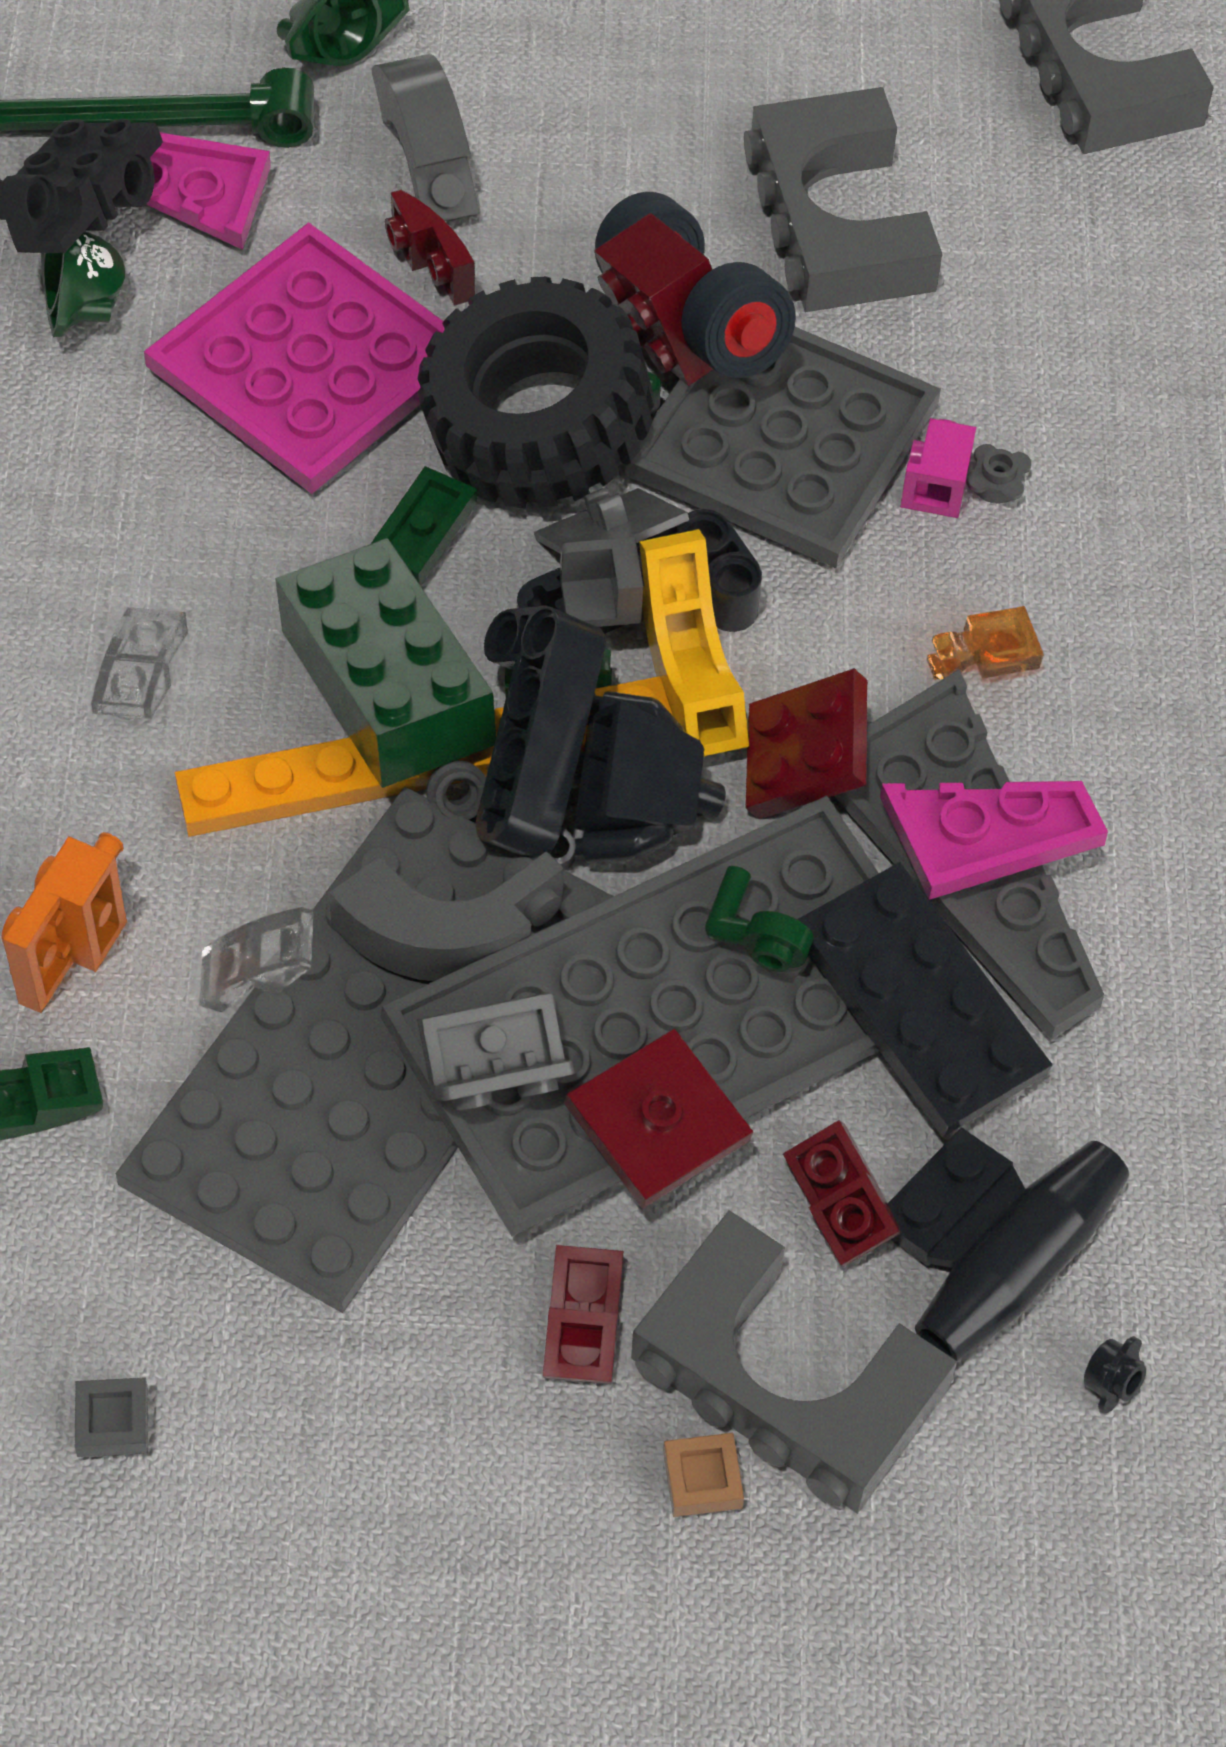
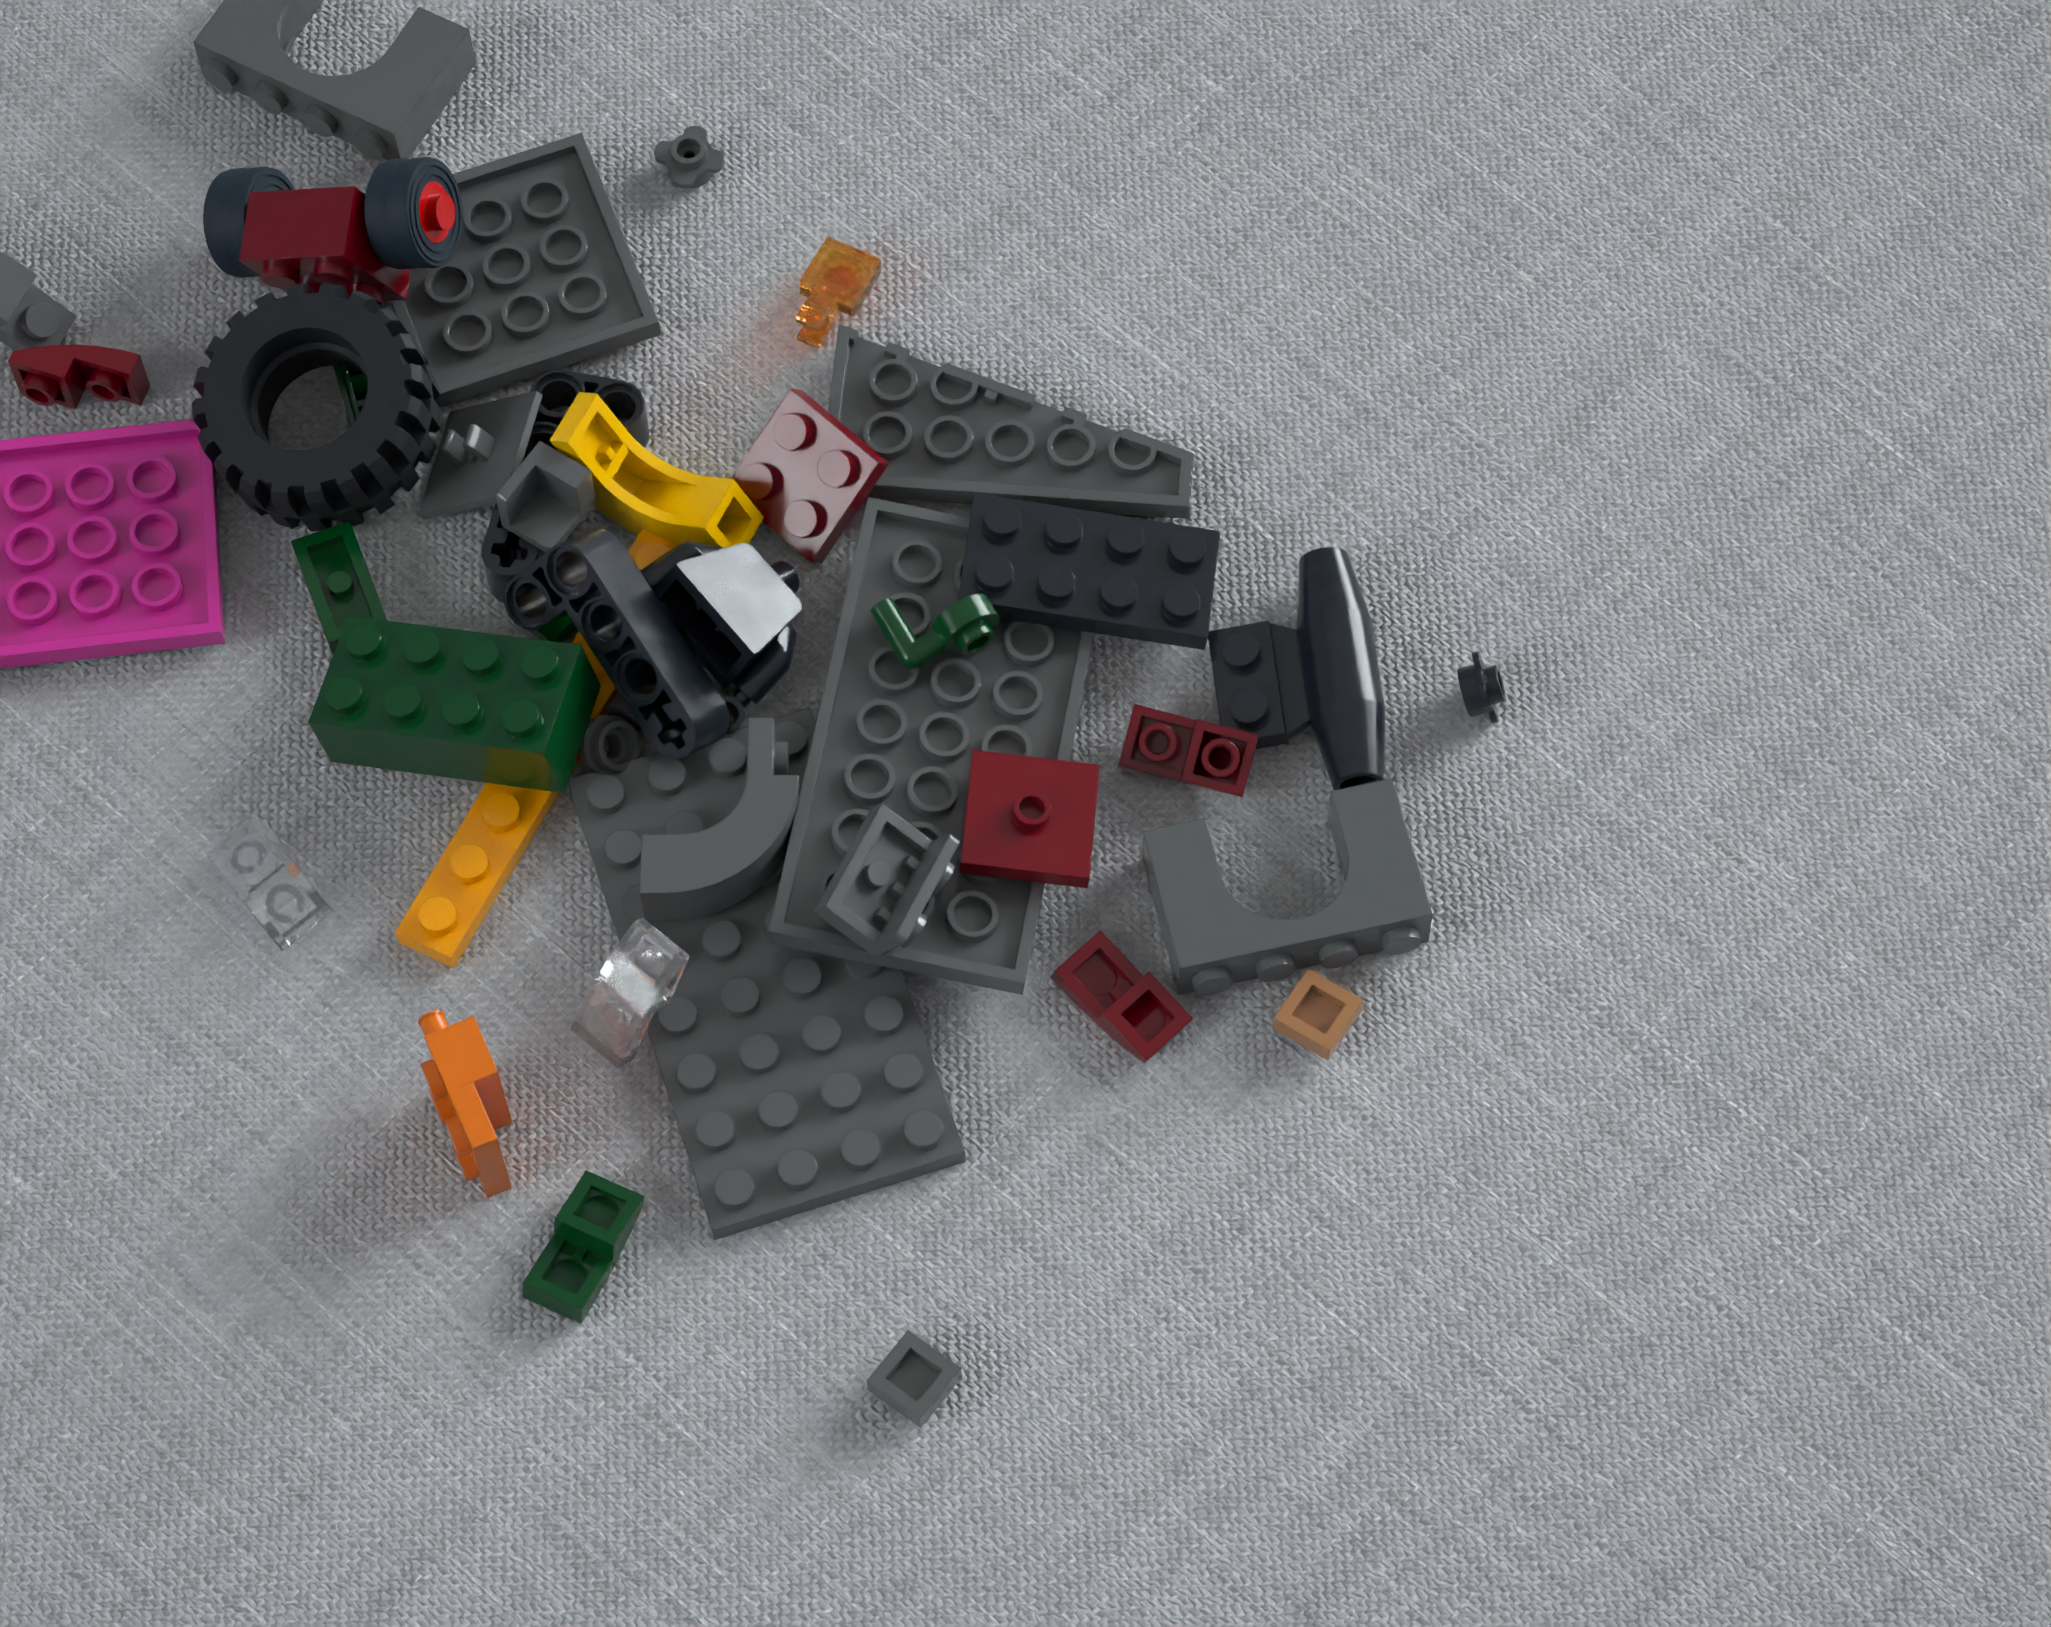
camera: 45 degrees left, 5 degrees up
(939, 468) = (650, 191): dark pink brick -> none
(986, 834) = (1001, 415): dark pink wing -> none

